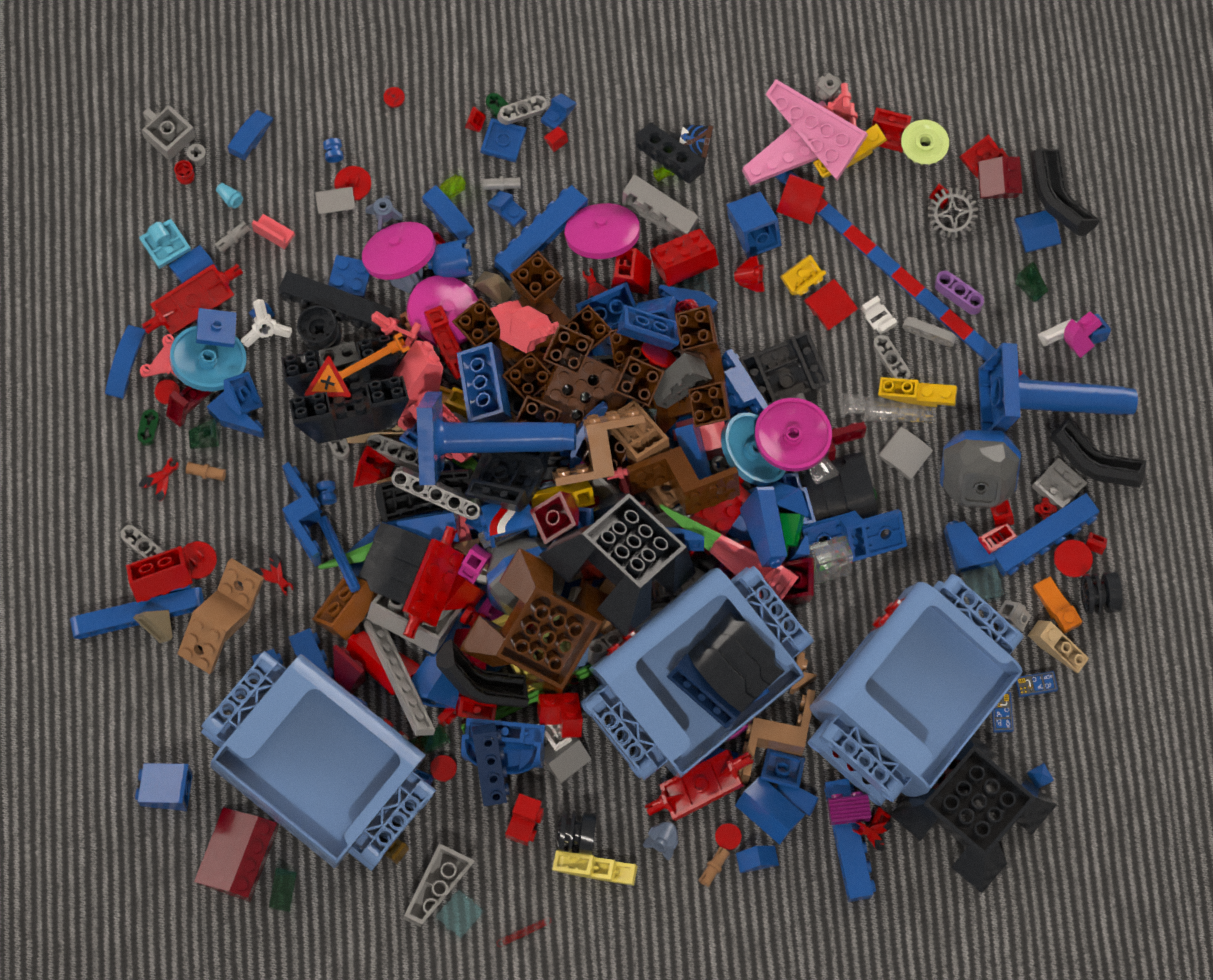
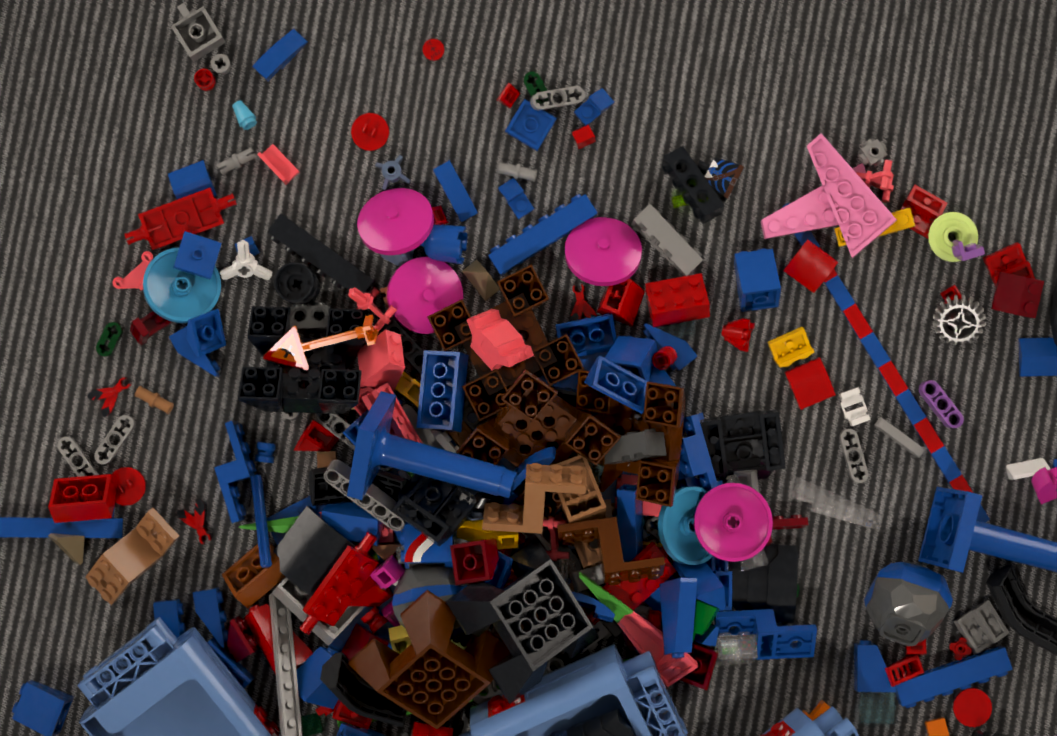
camera: 15 degrees right, 15 degrees up
(123, 361) = (101, 264): blue slope -> none
(164, 243) = (168, 150): medium azure plate -> none
(164, 389) = (135, 307): red piece -> none
(176, 532) = (111, 454): none -> light grey beam
(204, 435) = (161, 363): clear green slope -> none
(333, 151) = (358, 93): blue wheel -> none
(335, 200) = (347, 148): light grey slope -> none
(349, 275) = (341, 232): blue plate -> none
(444, 338) = (417, 329): red slope -> none
(453, 186) = (466, 163): clear neon green brick -> none
(658, 355) = (620, 416): red piece -> none
(905, 452) = (839, 556): light grey slope -> none
(917, 393) = (870, 498): yellow slope -> none
(938, 150) = (969, 252): none -> medium lavender bracket
(1031, 282) = (1016, 412): clear green slope -> none
(1096, 543) = (999, 695): red slope -> none

